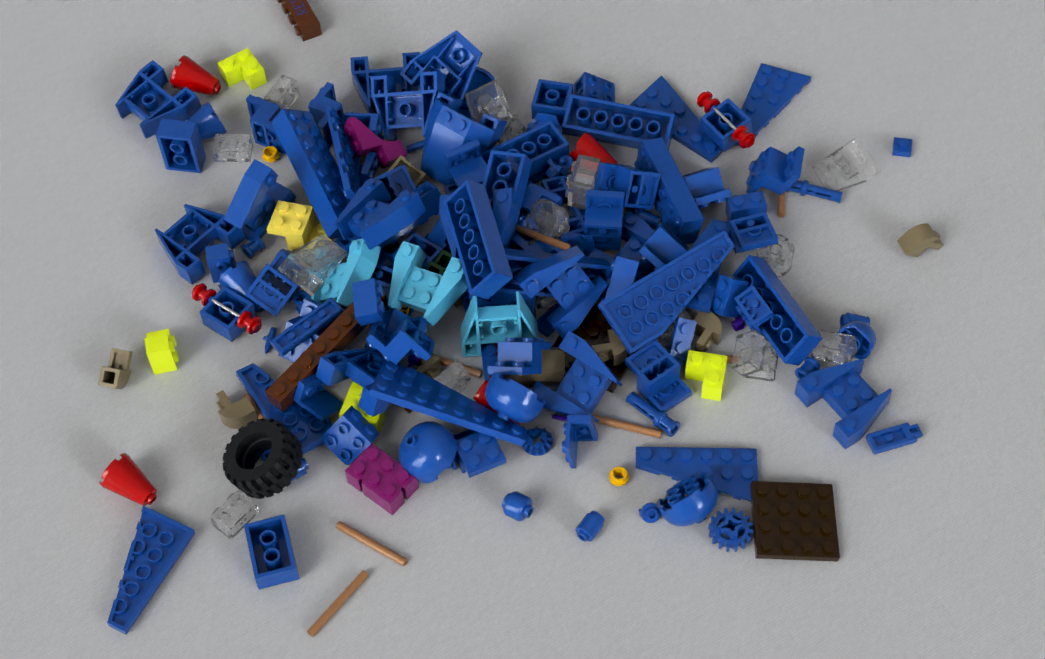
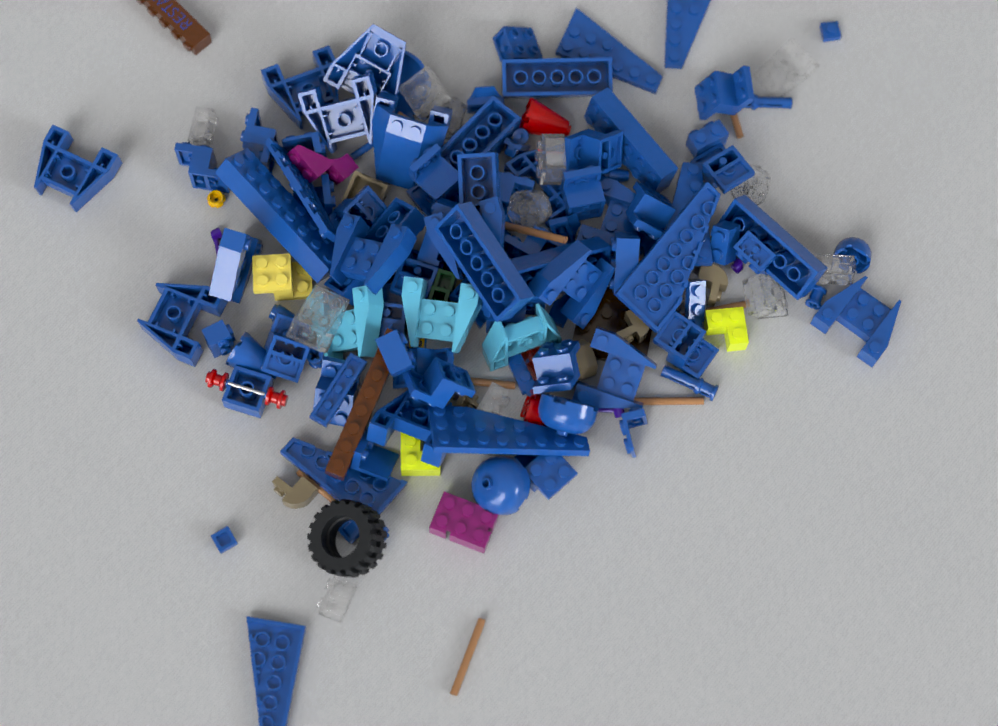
camera: 25 degrees left, 15 degrees up
(117, 372) = (161, 483): dark tan brick -> none
(128, 481) = (224, 597): red cone -> none
(153, 435) = (224, 539): none -> blue plate
(161, 351) = (197, 450): neon yellow brick -> none
(181, 145) = (125, 218): blue brick -> none
(194, 77) = (103, 132): red cone -> none
(207, 122) = (133, 187): blue cone -> none
(232, 148) = (175, 202): clear brick -> none
(242, 67) = (149, 104): neon yellow brick -> none
(252, 247) = (240, 309): blue bush -> none
(268, 338) = (297, 405): blue helmet -> none
(271, 552) = (389, 627): blue brick -> none
(349, 436) = (420, 489): blue bracket -> none
(371, 543) = (476, 588): medium nougat piece -> none
(517, 506) = (600, 513): blue head -> none
(539, 448) = (601, 436): blue gear -> none
(551, 98) = (481, 66): blue brick -> none
(590, 526) = (671, 513): blue brick -> none
(619, 471) = (680, 449): yellow plate -> none
(649, 513) = (720, 483): blue plate -> none
(693, 508) = (760, 469): blue cylinder -> none
(706, 186) = (664, 126): blue bracket -> none
(725, 122) = (662, 52): blue brick -> none
(728, 467) = (761, 422): blue wing -> none
(732, 527) = (801, 487): blue gear -> none
(794, 521) = (850, 454): dark brown plate -> none
(848, 317) = (839, 234): blue cone -> none
(893, 437) = (912, 345): blue hinge -> none
(918, 239) = (878, 132): dark tan brick -> none

